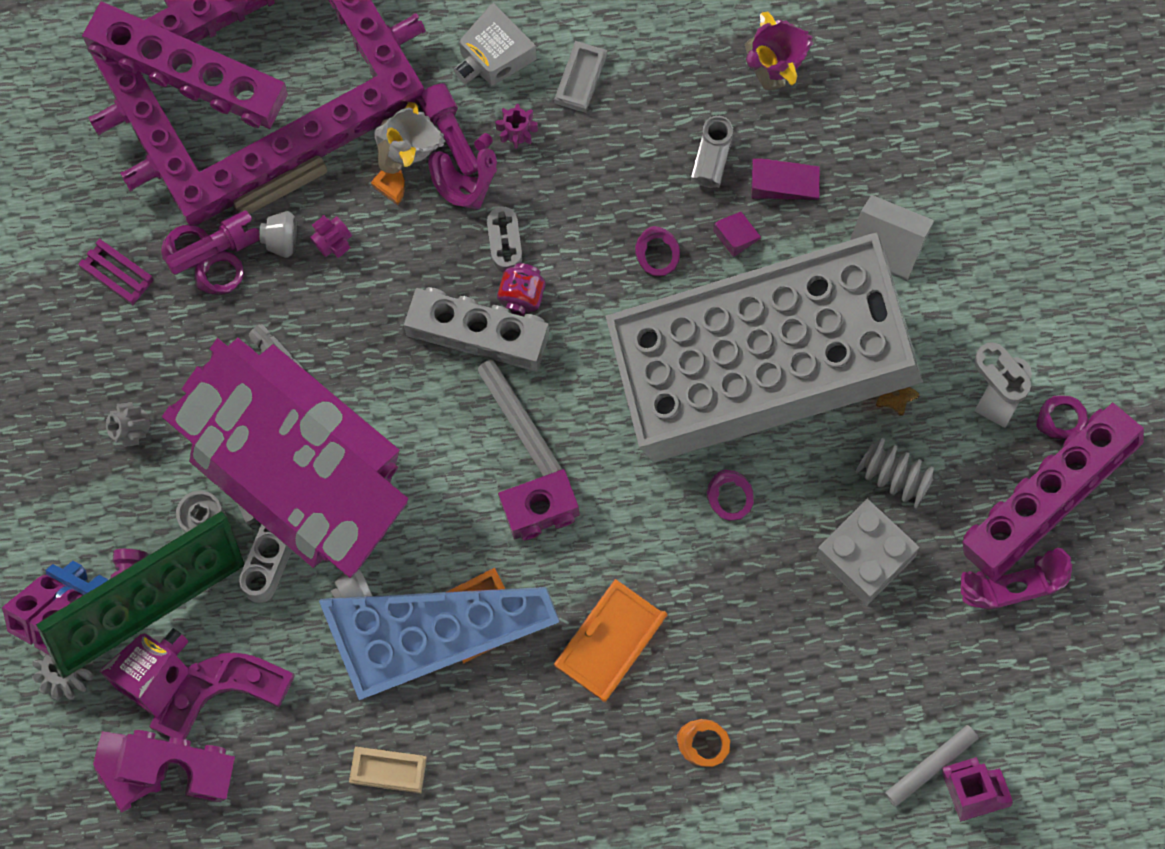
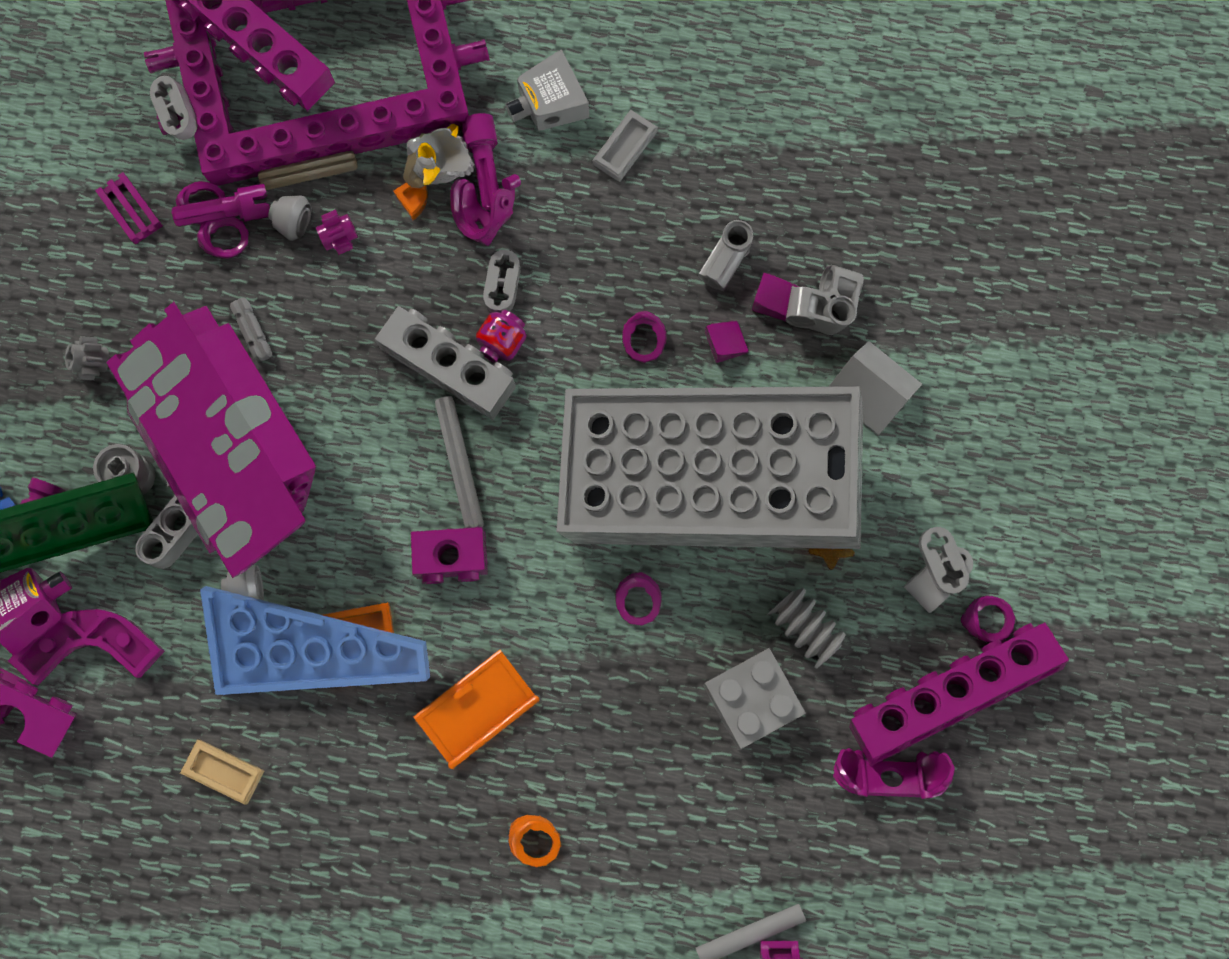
camera: 15 degrees right, 5 degrees up
(144, 157) = (179, 105): none -> light grey beam
(518, 135) = (553, 181): magenta gear -> none
(777, 51) = (820, 174): magenta hair -> none
(827, 157) = (813, 308): none -> light grey piece

